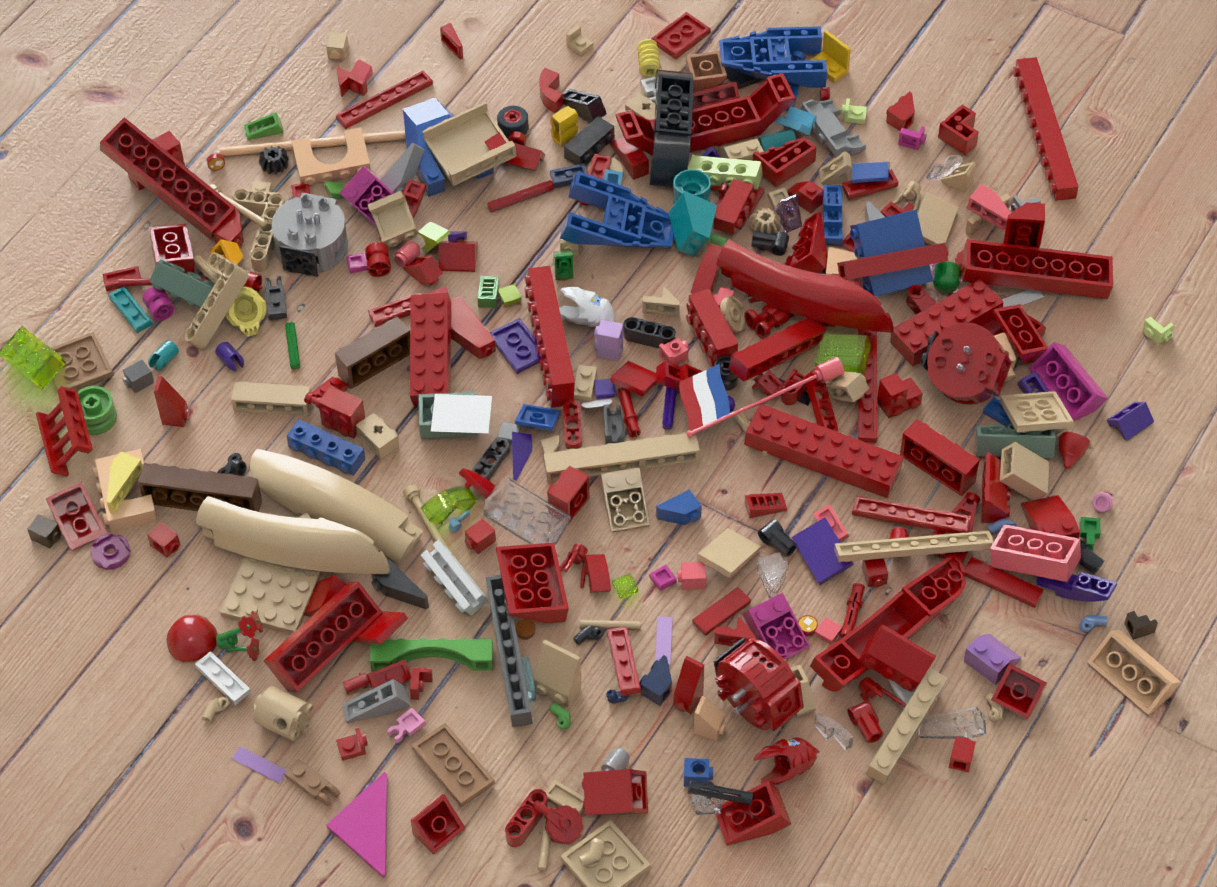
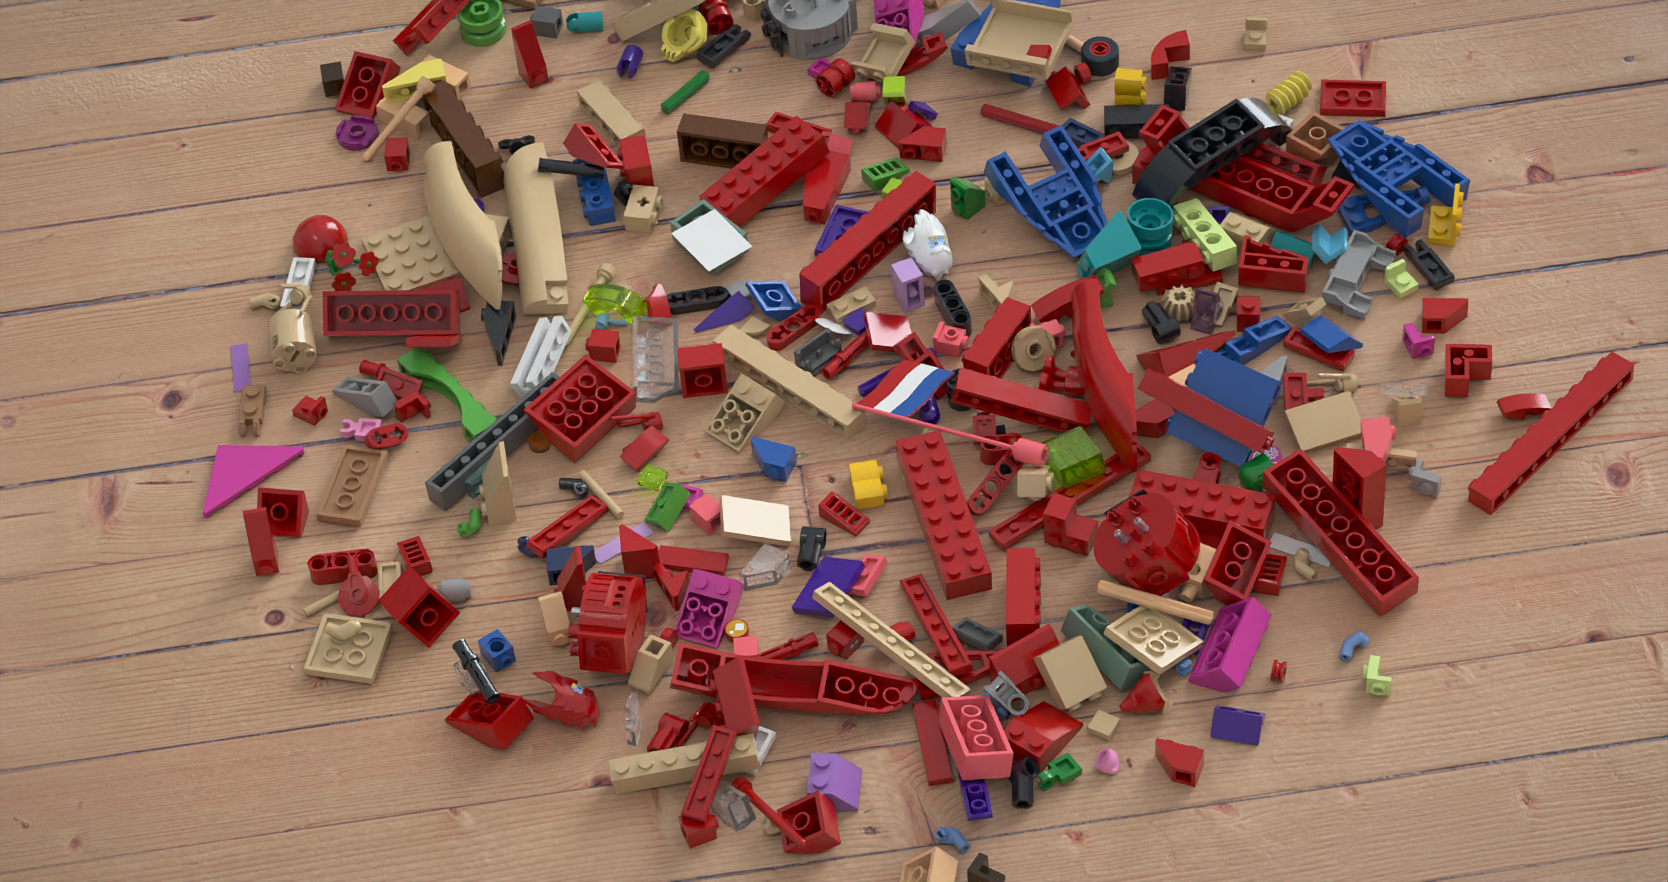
camera: 55 degrees right, 5 degrees down
(142, 477) = (424, 86): none -> light nougat piece
(245, 682) = (299, 295): none -> tan plant
(303, 423) = (587, 145): none -> red slope
(315, 396) = (657, 145): red plate -> none
(316, 442) = (572, 168): none -> black pin
(352, 434) = (621, 191): none -> black arm
(430, 718) = (387, 441): none -> red beam
(465, 853) = (261, 541): none -> red slope
(491, 253) = (924, 144): none -> red slope
(562, 776) = (421, 567): none -> red slope
(661, 593) = (667, 506): none -> bright green slope
(695, 636) = (637, 553): none -> red slope
(753, 474) = (867, 485): none -> yellow brick
(855, 92) = (1429, 265): none -> black hinge
(939, 499) = (977, 634): none -> dark grey plate
(940, 714) = (709, 774): none -> red tile
(1008, 704) = (745, 786): none -> red piece
(1009, 391) = (1155, 602): none -> light nougat axle
(1011, 126) = (1520, 404): none -> red slope
(1016, 513) = (1006, 693): none -> light grey piece
(1033, 307) = (1301, 564): none -> tan arm
(1069, 485) = (1103, 725): none -> tan tile
(1109, 372) = (1278, 671): none -> red bush
(1117, 325) = (1350, 643): none -> medium blue arm
(1137, 467) = (1180, 761): none -> red slope

